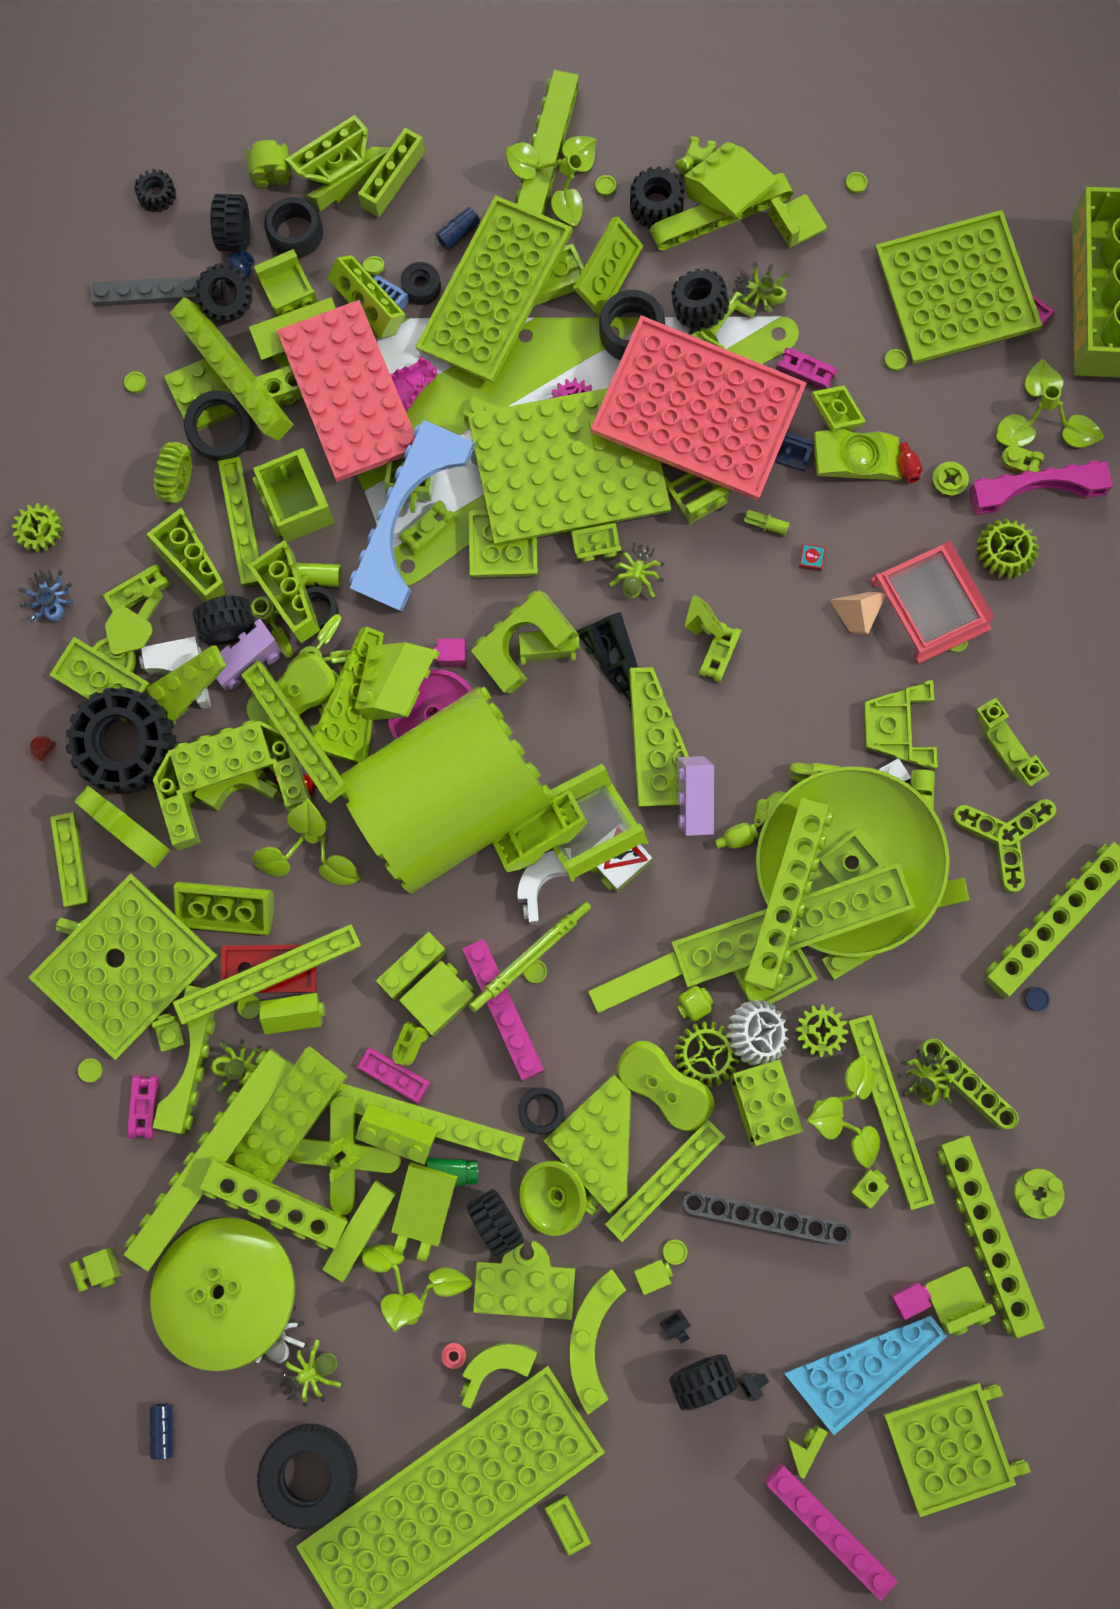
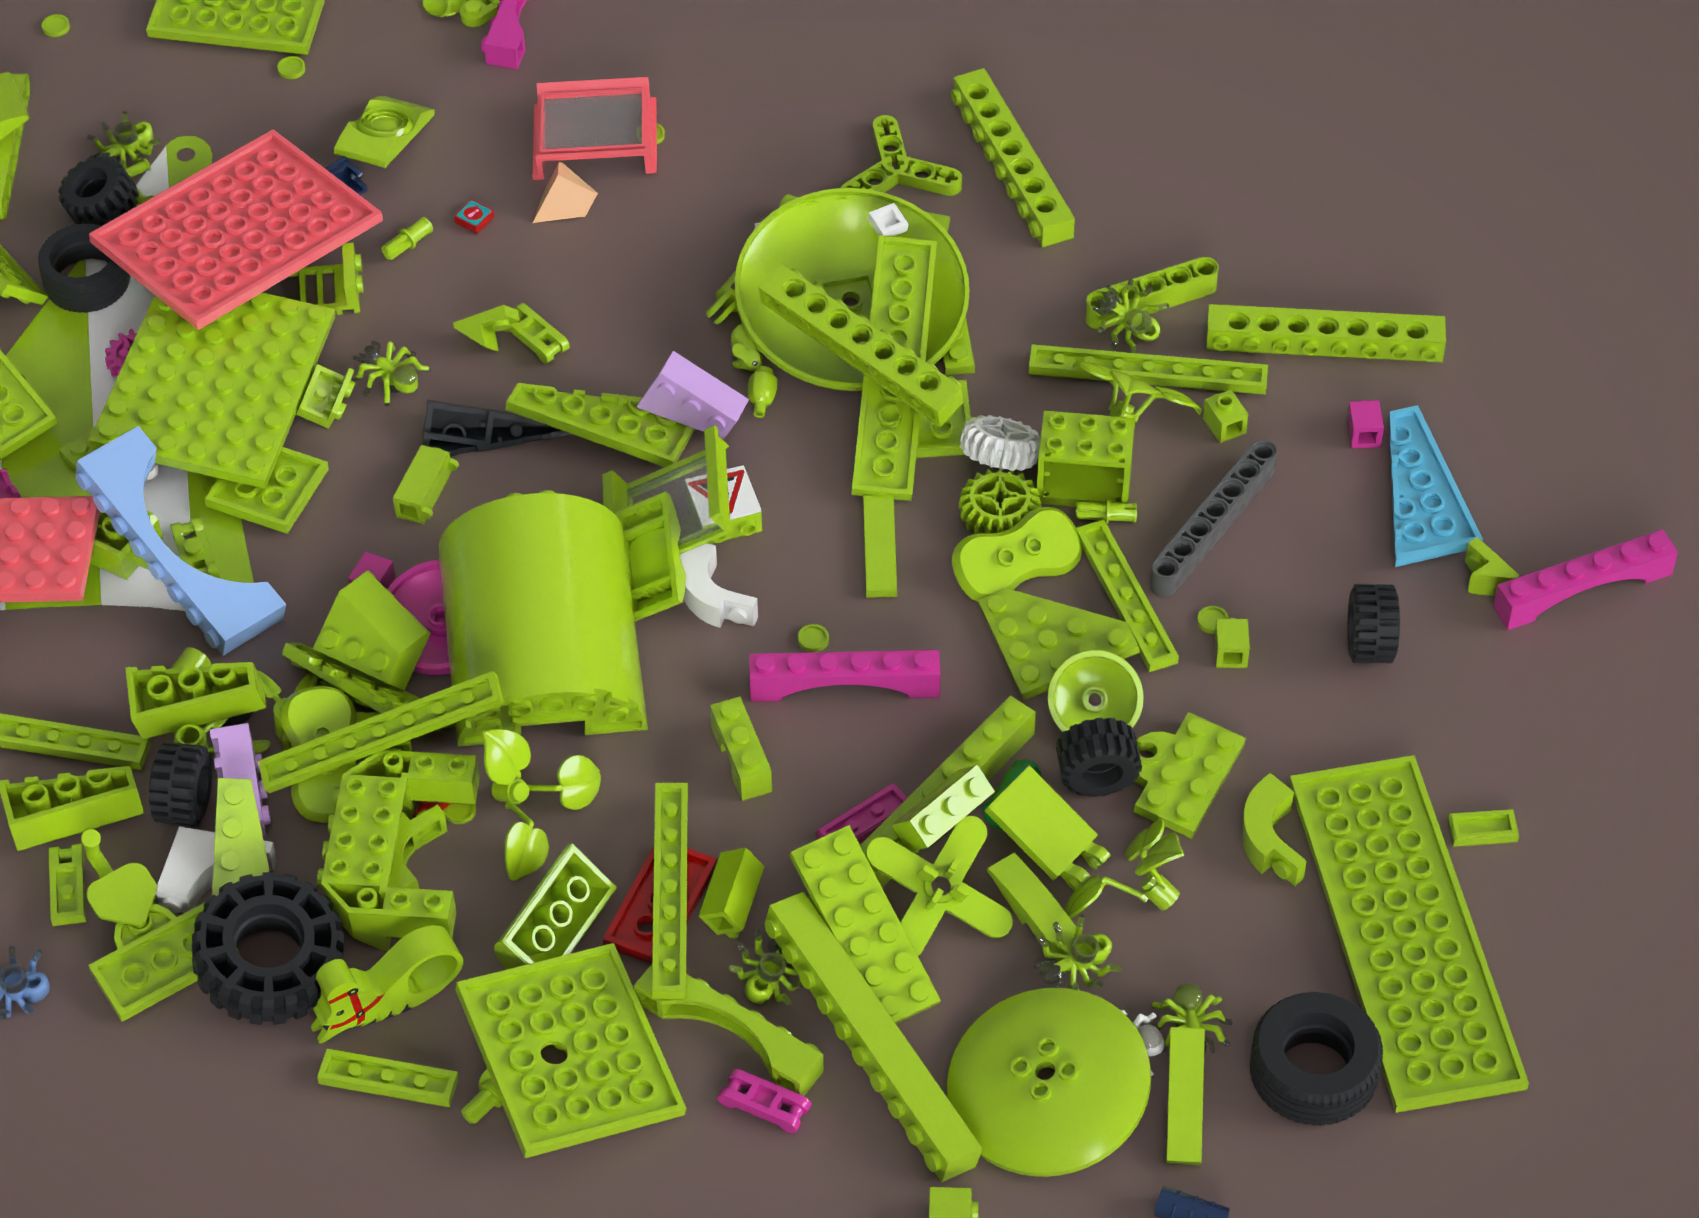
camera: 70 degrees left, 25 degrees down
(41, 746) = (211, 1064): clear red plate -> none
(90, 1070) = (683, 1151): lime piece -> none
(169, 1032) = (682, 1041): lime bracket -> none
(245, 1393) = (1185, 1096): none -> lime tile
(249, 1007) = (698, 945): lime piece -> none
(292, 496) = (64, 660): lime container -> none
(311, 1211) = (961, 978): lime brick -> none
(325, 1277) = (1085, 954): none -> animal
(409, 1043) = (842, 792): lime plate -> none
(438, 997) = (795, 737): lime brick -> none
(461, 1353) = (1233, 877): coral plate -> none
(494, 649) = (385, 458): lime arch -> none
(531, 955) = (796, 618): lime axle -> none
(541, 1092) = (984, 664): black tyre -> none
(584, 1337) = (1275, 729): lime brick -> none
(675, 1326) = (1298, 640): black tile -> none
(694, 1003) = (935, 495): lime head -> none
(737, 1134) = (1107, 511): none -> lime axle
(752, 1385) = (1405, 591): black tile -> none
(796, 219) = (62, 87): lime bracket -> none
(806, 368) = (244, 136): dark pink plate -> none
(832, 1031) = (1026, 394): lime gear -> none
(837, 408) = (319, 125): lime slope -> none
(889, 725) = (715, 217): lime wing -> none
(909, 464) = (423, 94): red plant -> none
(916, 862) = (888, 221): none -> white plate
(951, 469) = (453, 65): lime gear -> none
(951, 1449) = (1540, 447): lime plate -> none
(959, 1301) = (1389, 383): lime bracket -> none
(998, 533) = (575, 50): lime gear -> none
(1006, 745) = (797, 133): lime slope -> none
(1032, 1181) = (1299, 268): lime plate -> none
(1037, 999) = (1088, 210): dark blue piece -> none

